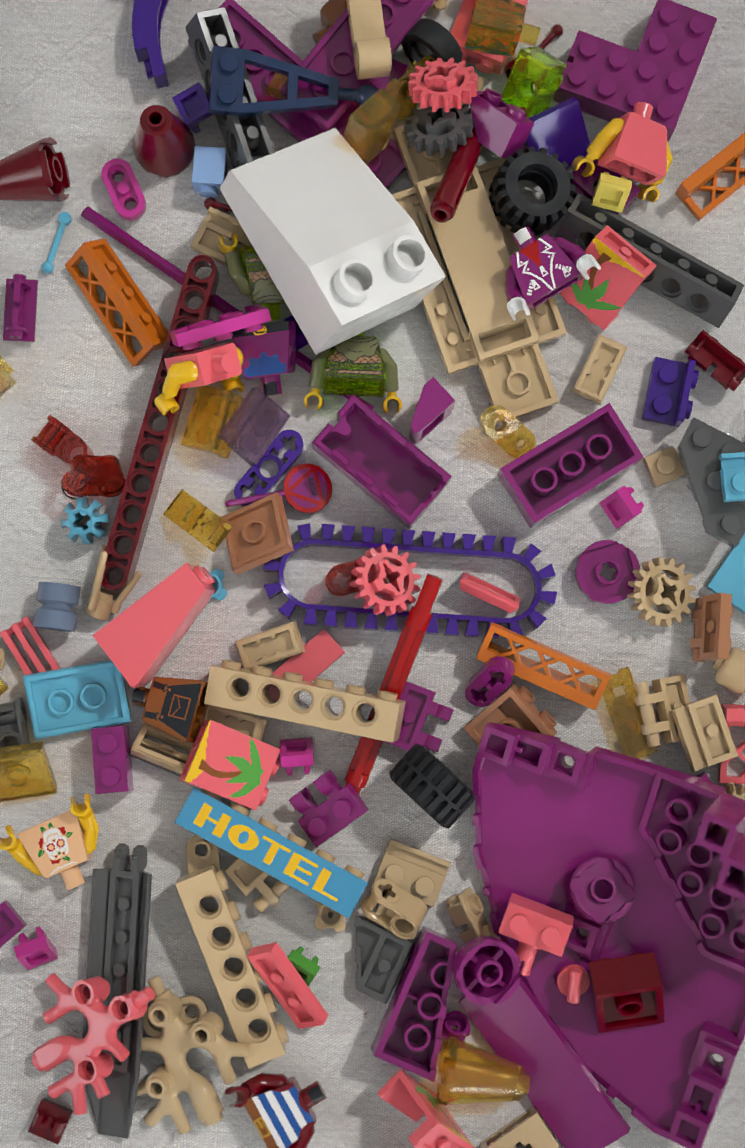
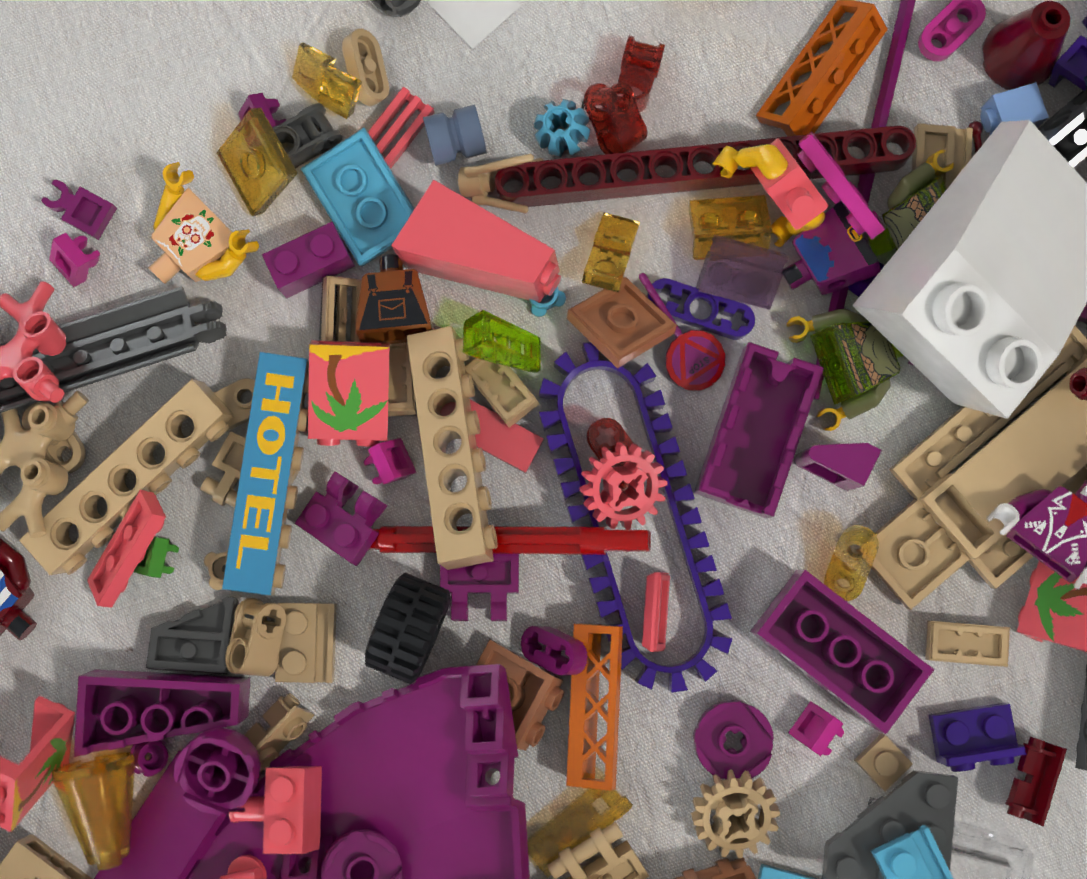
camera: 75 degrees right, 0 degrees up
(233, 648) = (479, 342): none -> clear neon green slope

